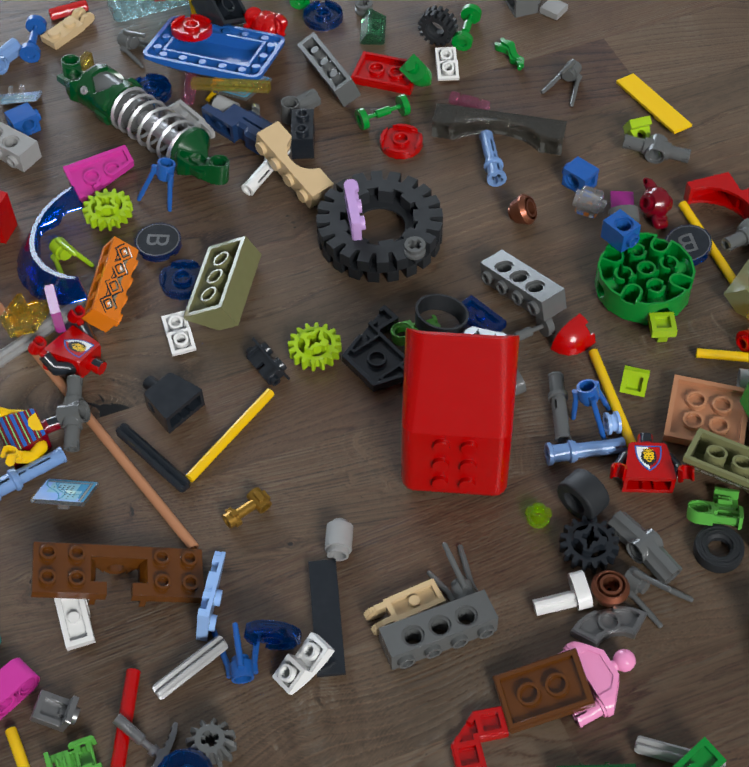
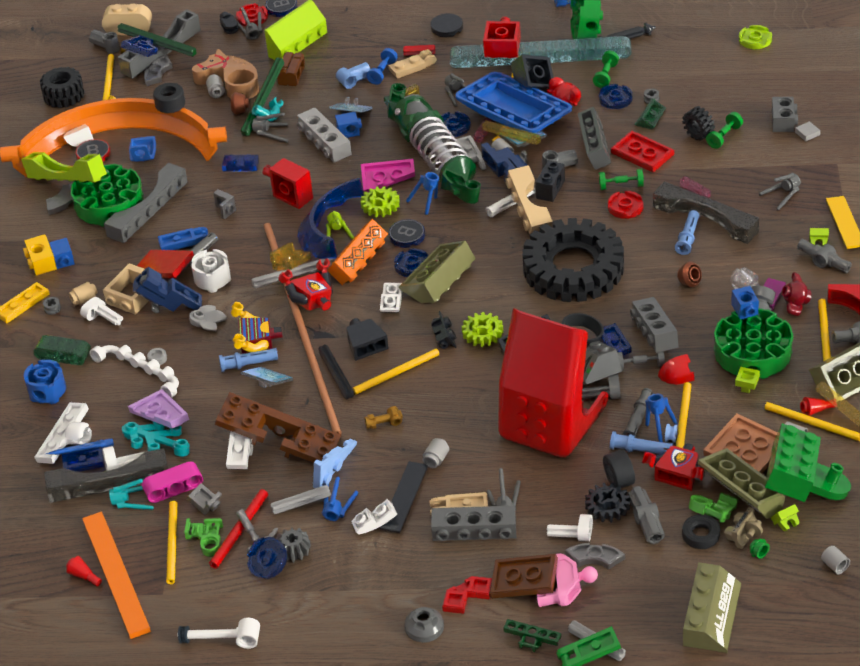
camera: 25 degrees right, 10 degrees down
(54, 308) = (309, 257): tile -> none
(73, 413) = (294, 329): dark grey pin -> none
(191, 28) = (502, 84): red tile -> none
(273, 633) = (361, 492): clear blue tile -> none
(354, 207) = (553, 239): lavender hinge -> none
(415, 243) = (585, 278): dark grey bush -> none
(417, 72) = (663, 156): green plate -> none
(446, 63) = (693, 155): white slope -> none
(508, 47) = (750, 153): green hair -> none
(538, 521) = (583, 477): clear neon green plate -> none
(578, 174) = (749, 258): blue brick -> none
(610, 588) = (605, 531): copper cone -> none
(634, 381) = (704, 410): lime tile -> none
(640, 583) = (630, 535): dark grey plant -> none
(693, 240) = (807, 330): black tile -> none

